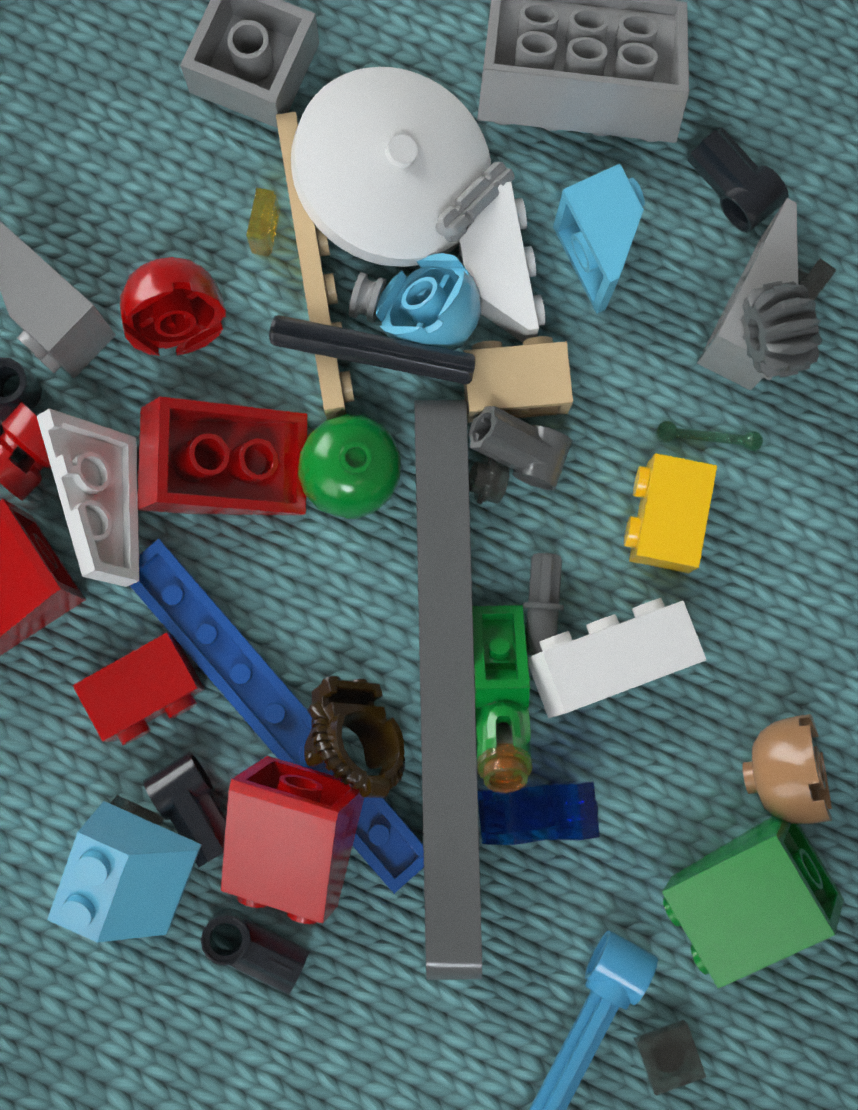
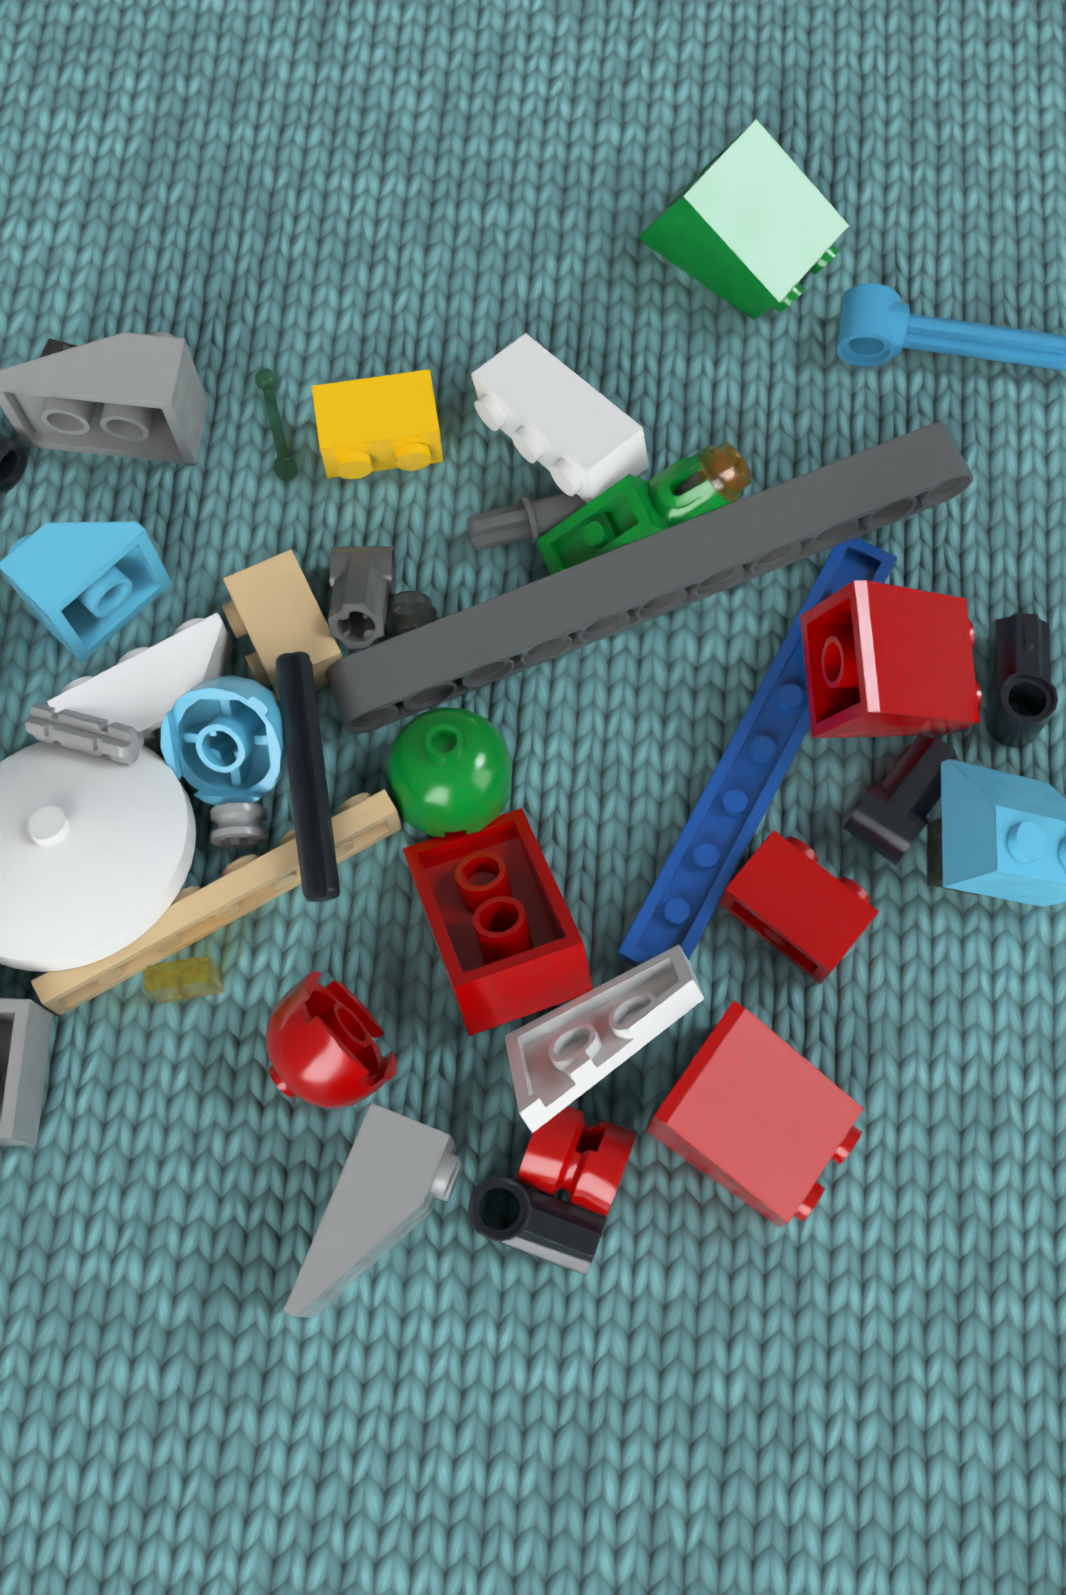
camera: 105 degrees left, 10 degrees down
(352, 705) = (747, 653): dark brown piece -> none
(539, 813) = (742, 414): clear blue brick -> none
(669, 1057) = (932, 258): clear smoke plate -> none
(781, 329) = (149, 322): dark grey gear -> none
(790, 772) = (605, 229): medium nougat cylinder -> none

